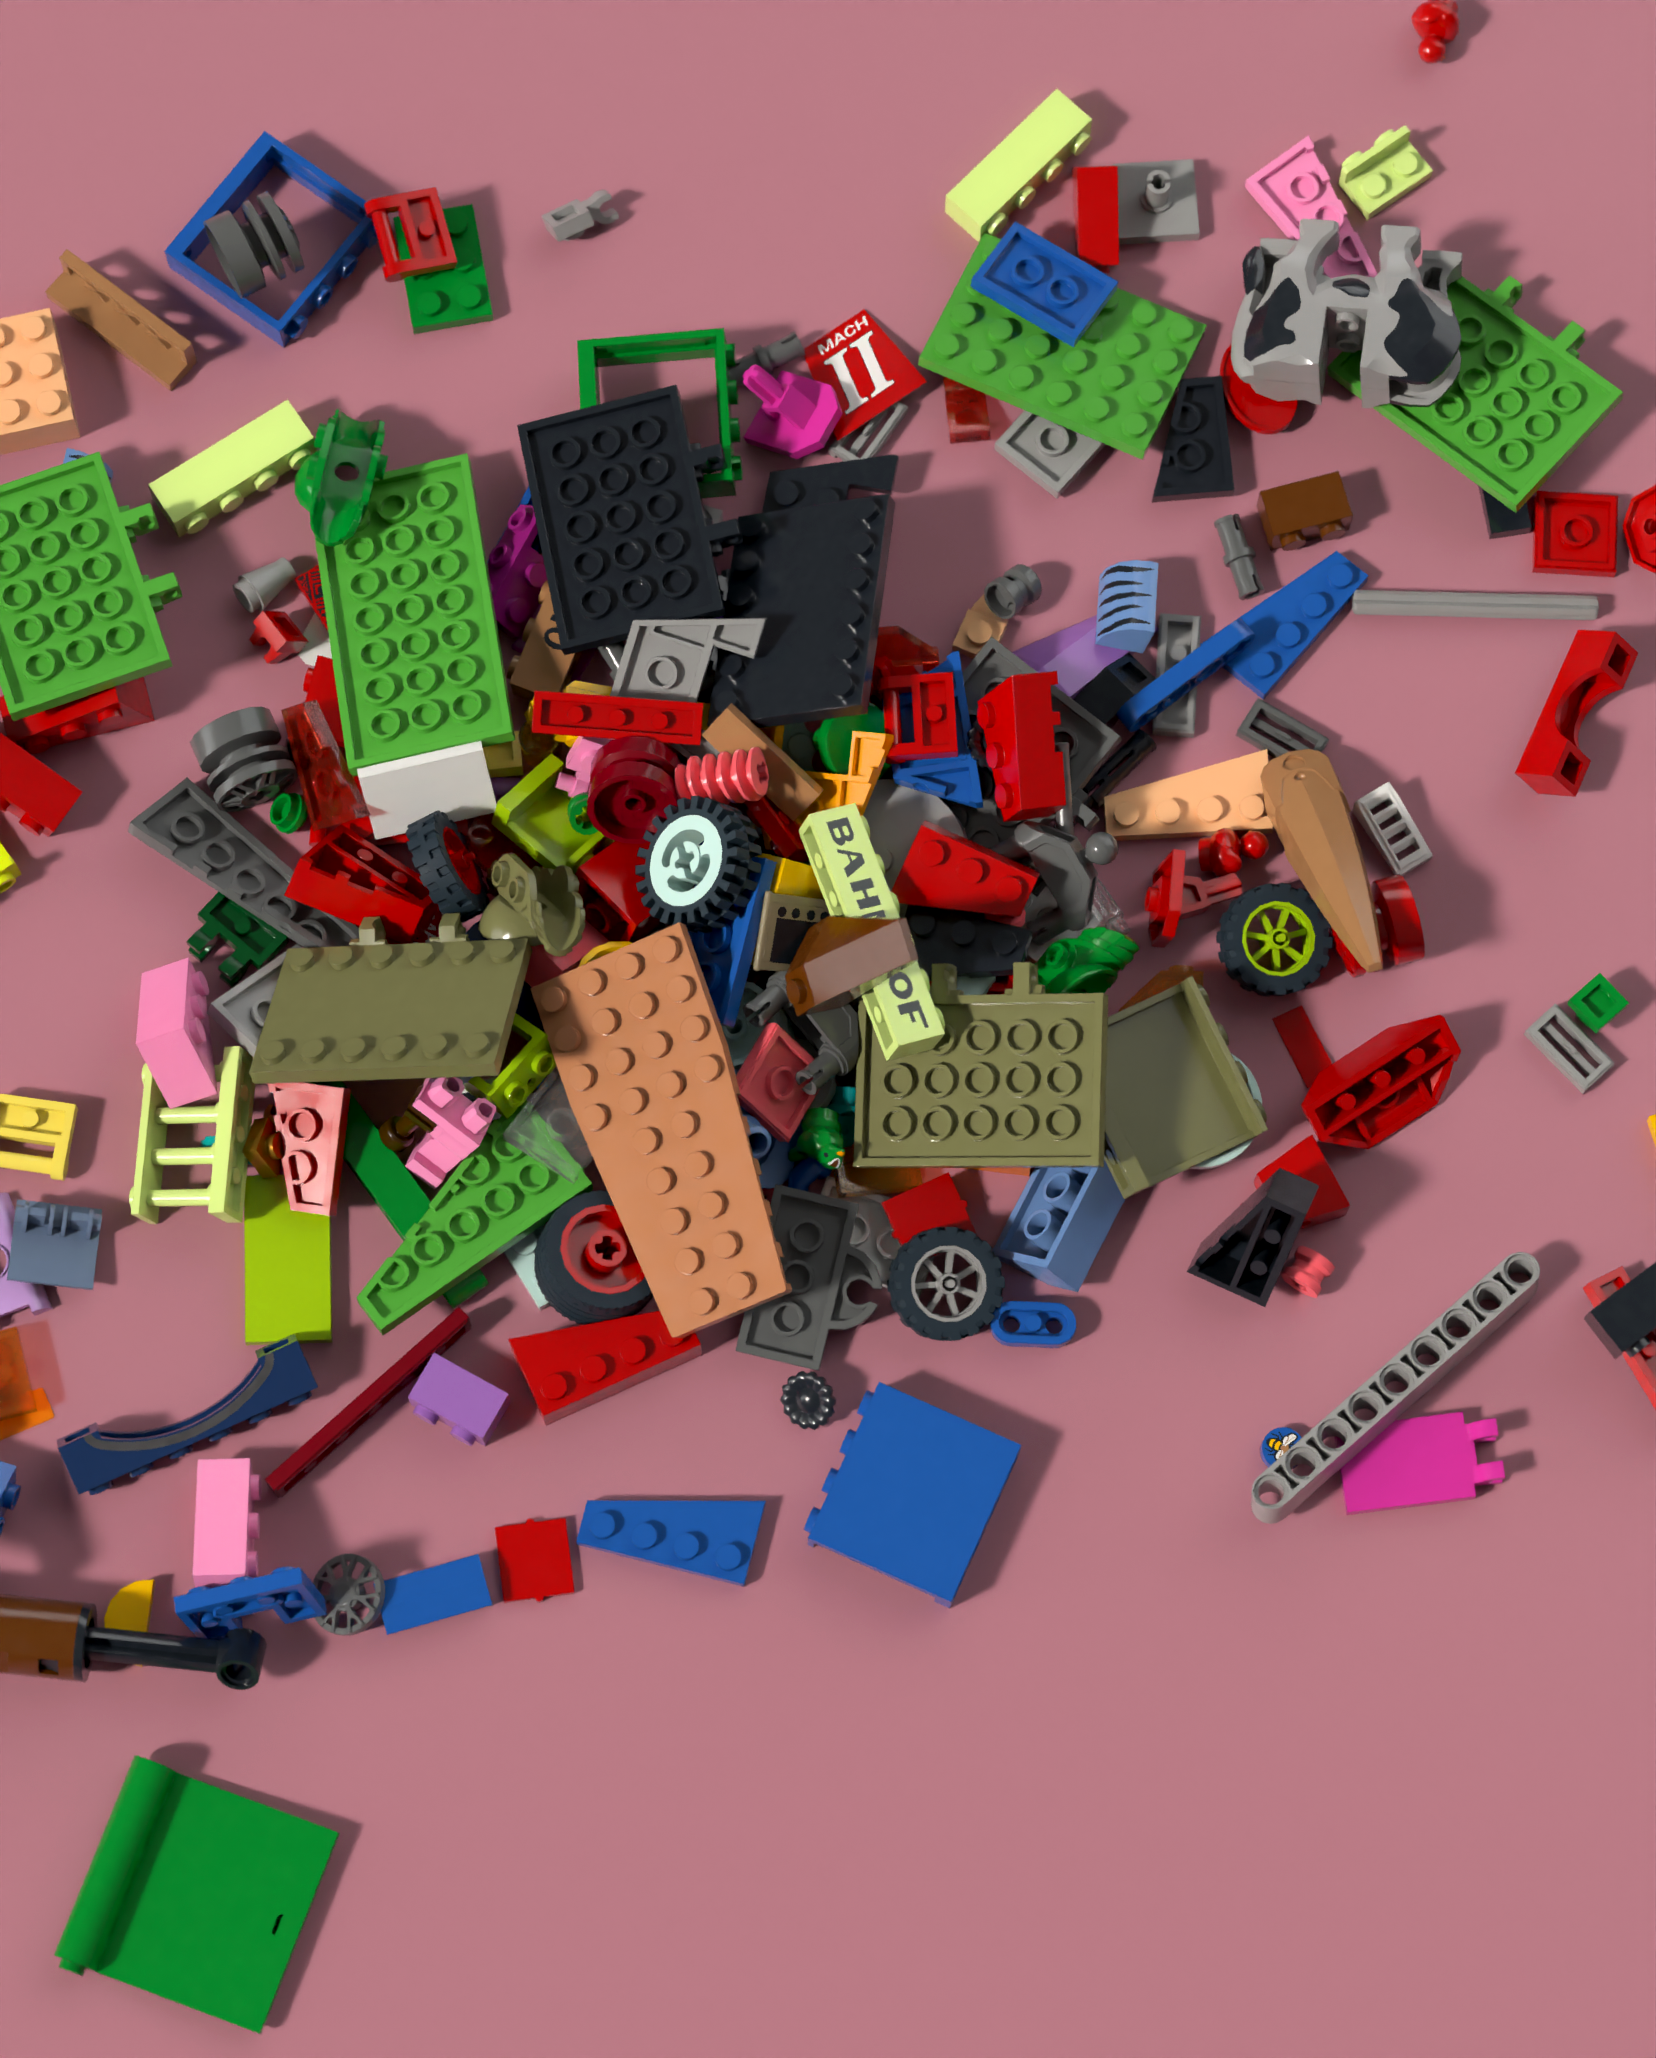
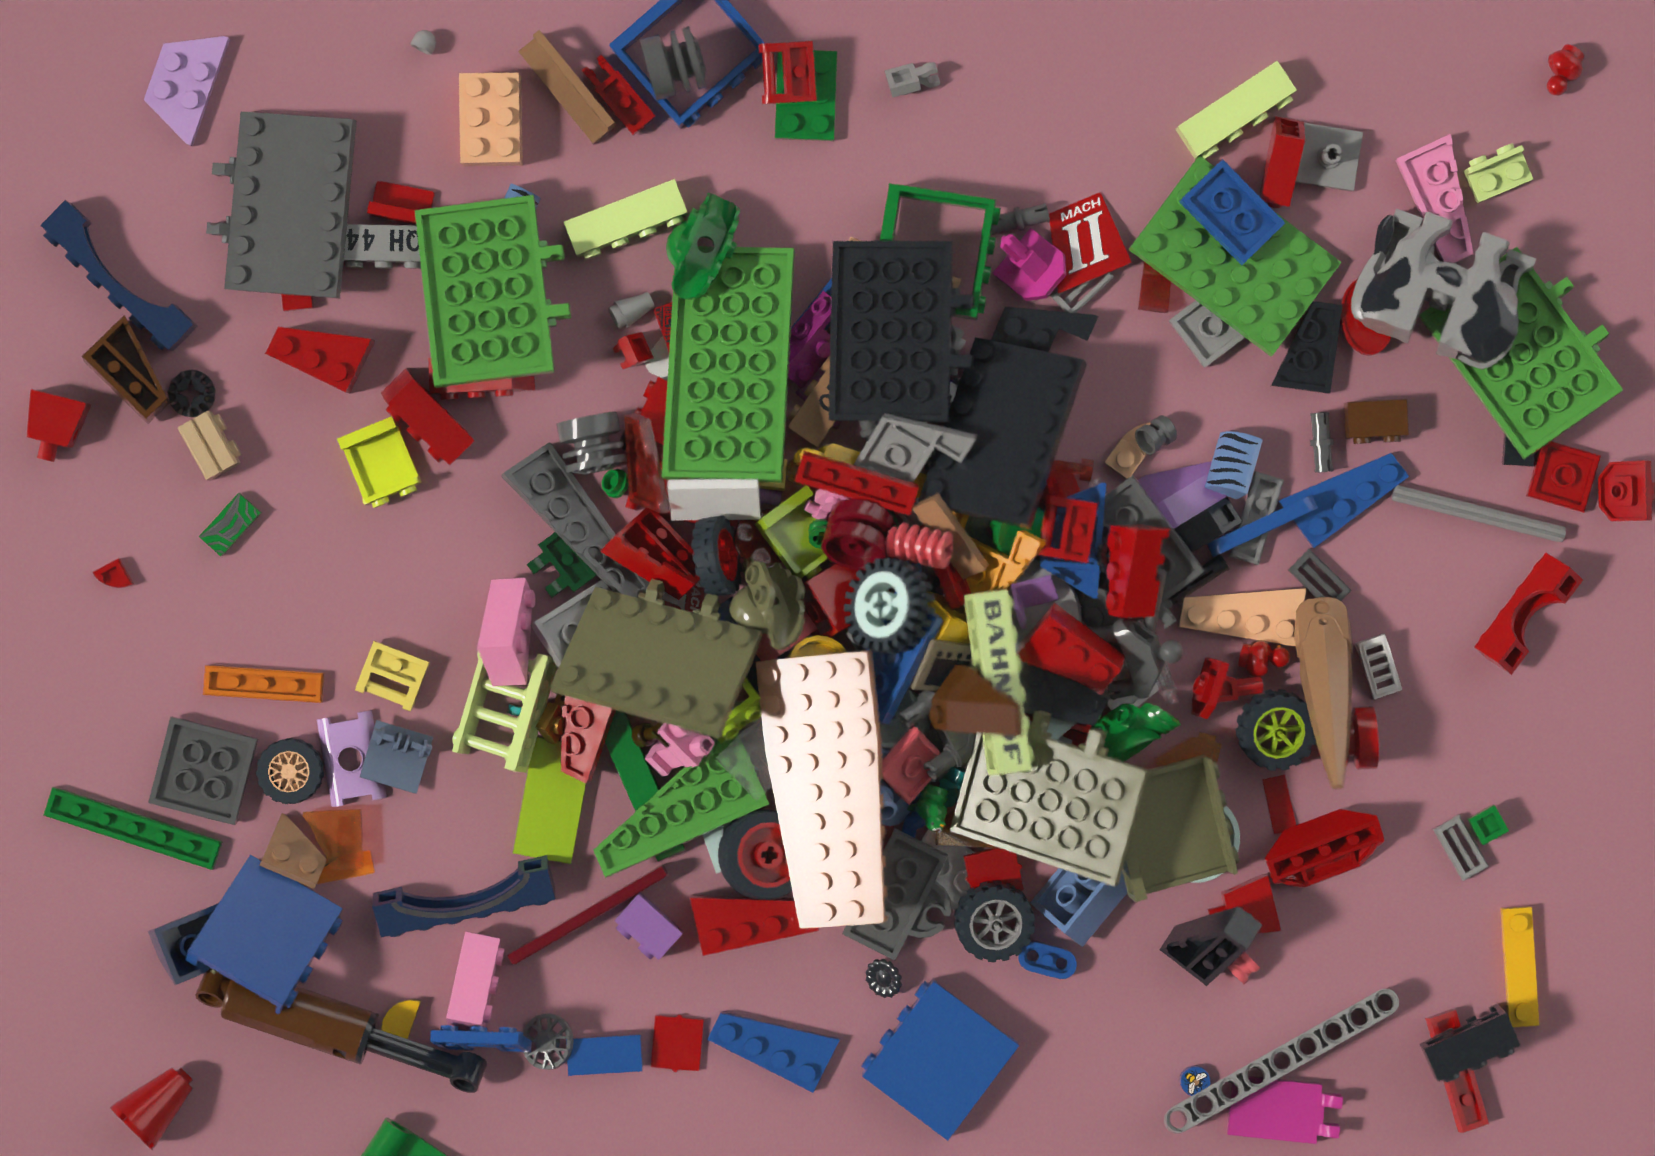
camera: 15 degrees right, 15 degrees up
(195, 320) = (621, 97): none -> red hinge
(894, 814) = (1032, 593): none -> medium lavender bracket

